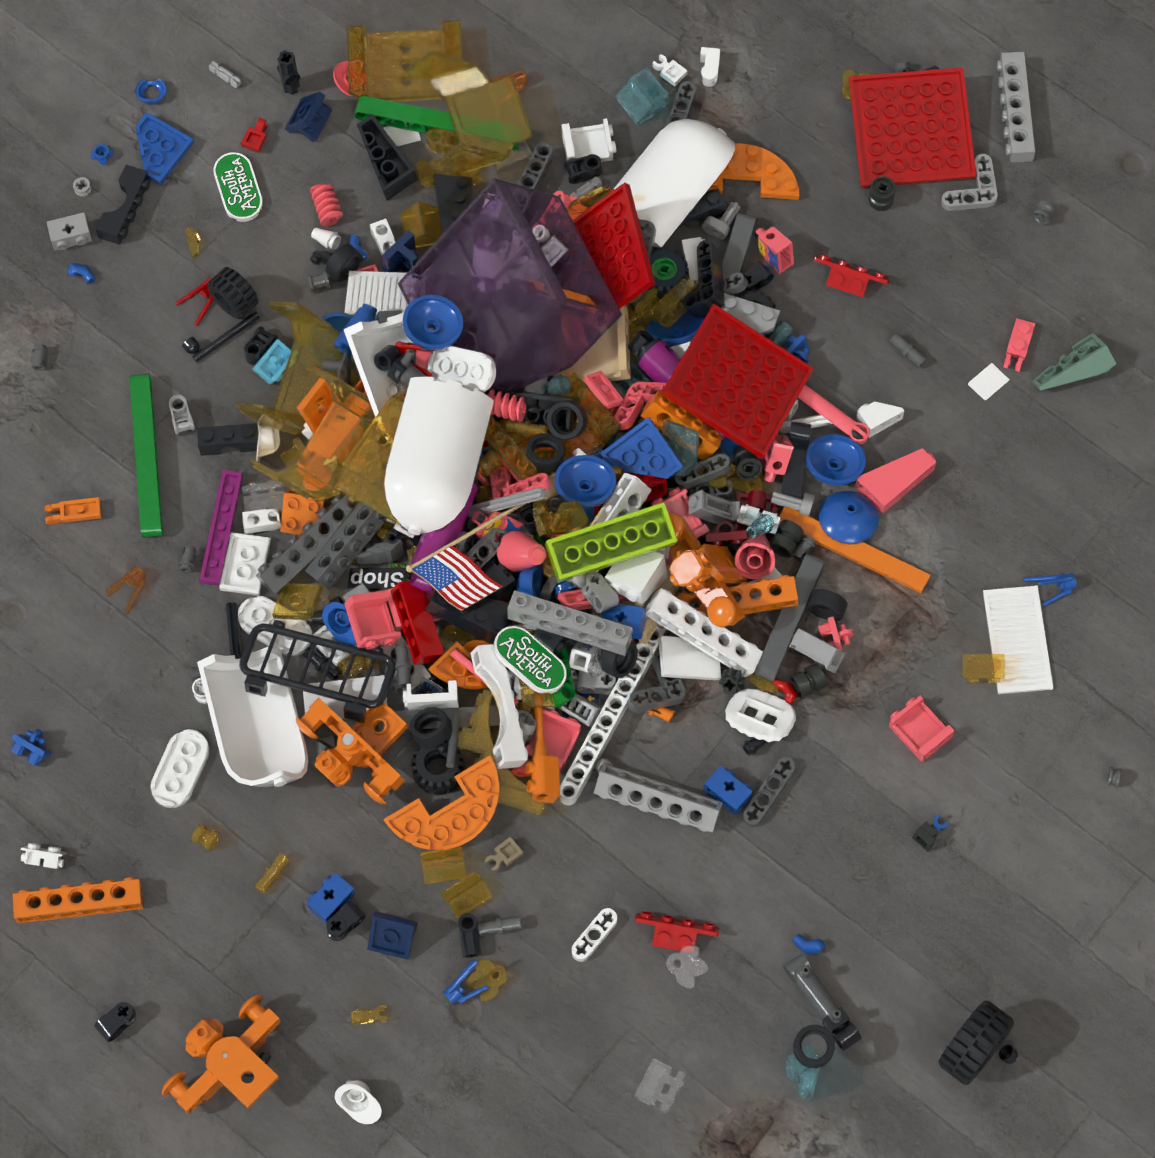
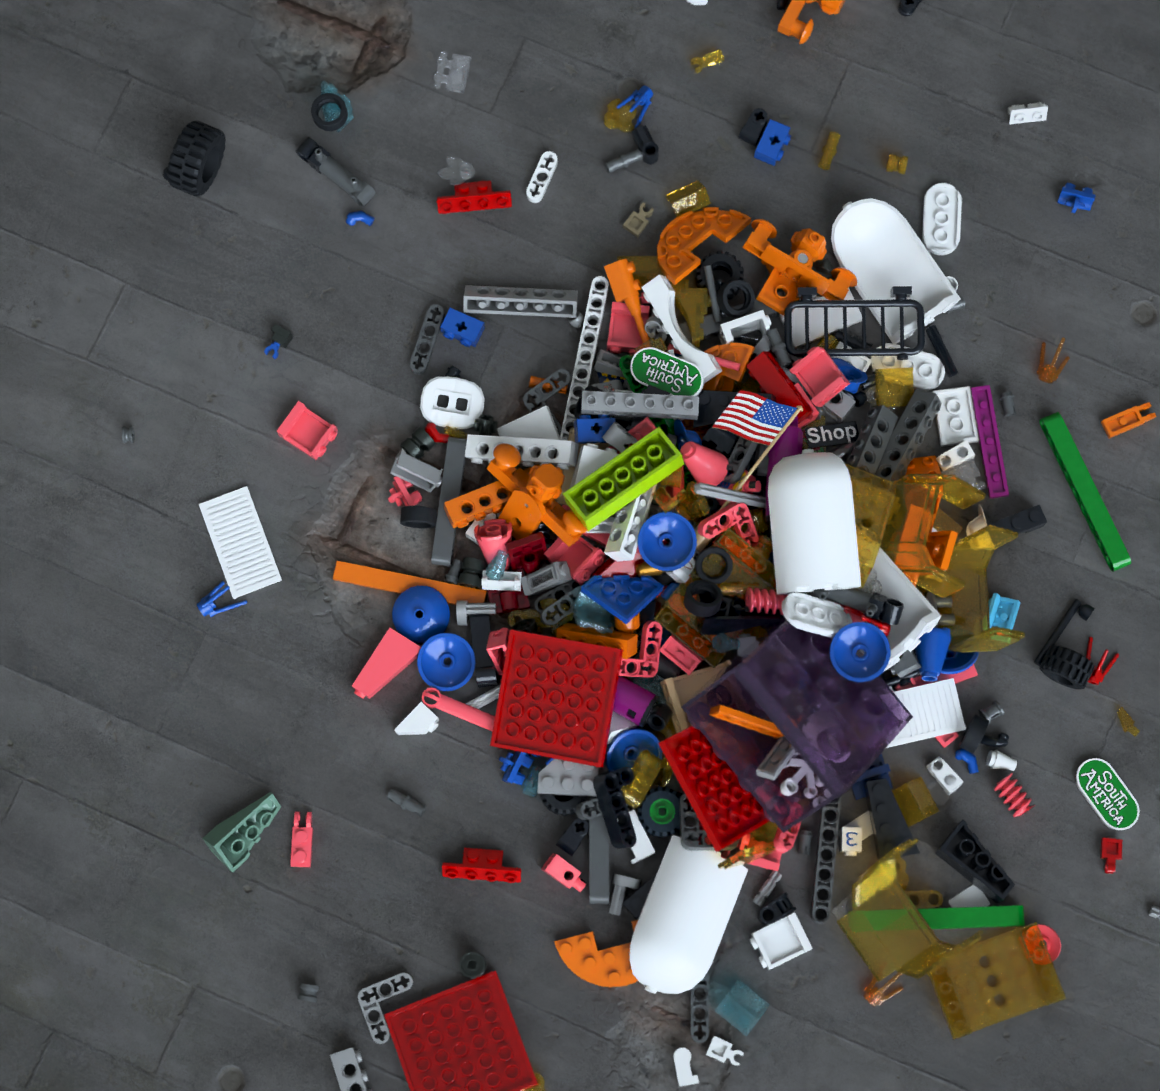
camera: 165 degrees right, 10 degrees up
(88, 906) = (1023, 61): orange brick -> none
(181, 417) = (1067, 536): light grey piece -> none
(258, 343) = (1027, 629): black piece -> none
(288, 72) = (1104, 922): black piece -> none
(309, 116) = (1066, 888): dark blue bracket -> none
(391, 935) = (710, 128): dark blue bracket -> none
(401, 254) = (920, 755): dark blue bracket -> none
(427, 170) = (922, 868): clear yellow plate -> none
(466, 894) = (660, 179): clear yellow panel -> none
(983, 667) = (263, 499): clear yellow bracket -> none
(988, 381) = (323, 794): white sticker -> none

